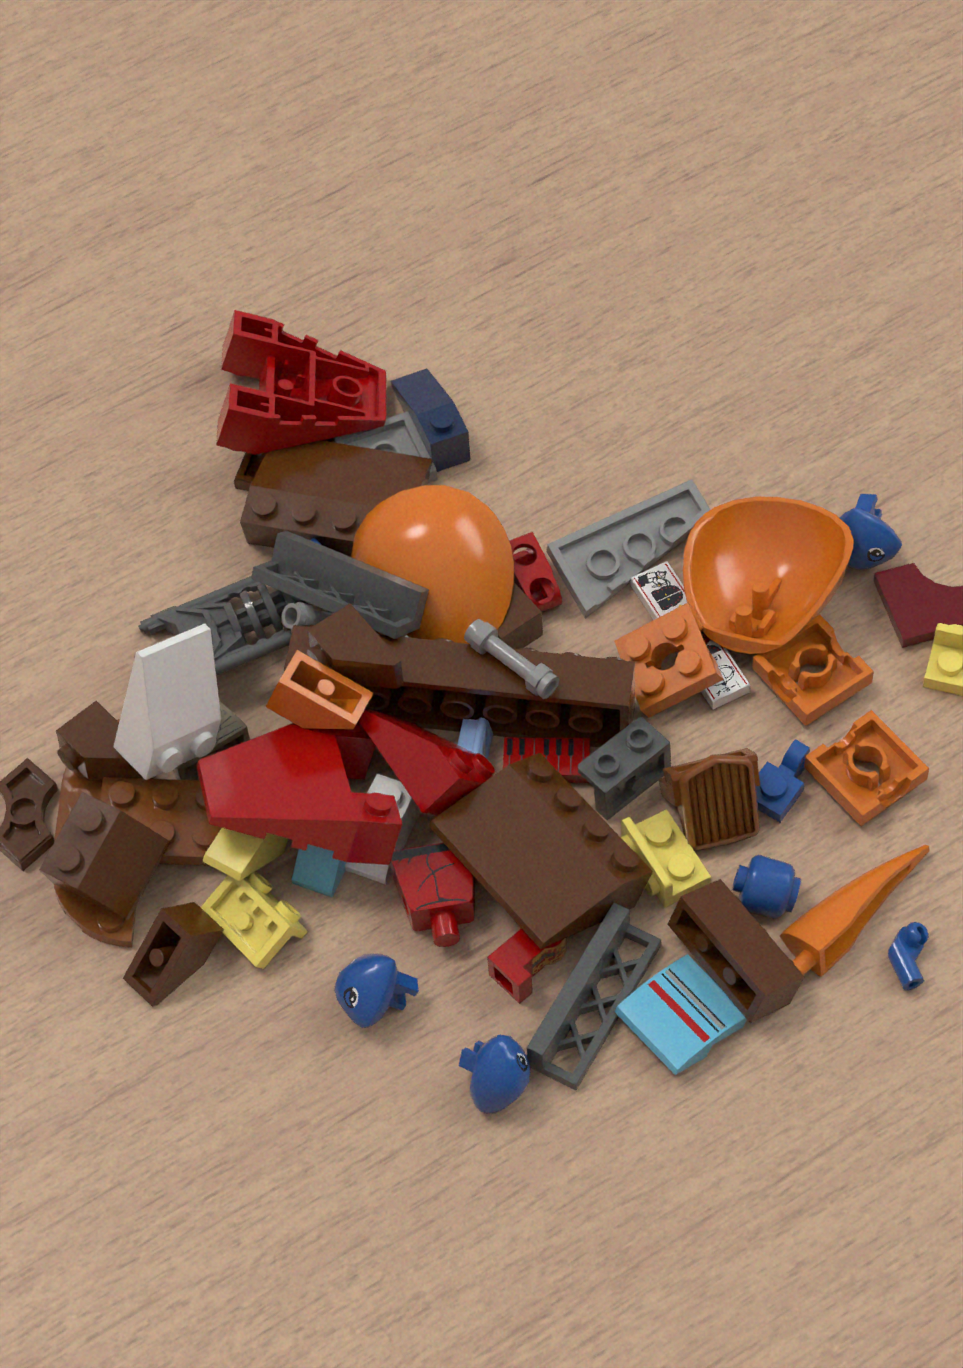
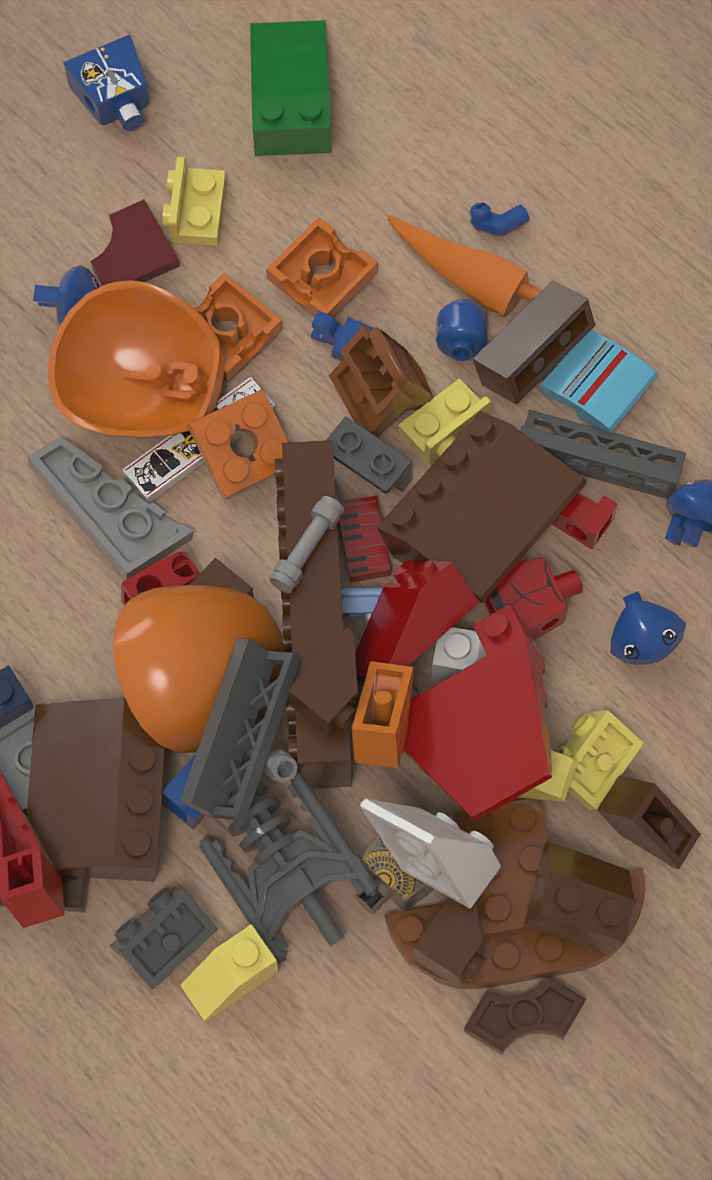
camera: 105 degrees left, 10 degrees up
(138, 584) = (229, 973): none -> light yellow slope
(187, 533) = (163, 935): none -> dark grey bracket

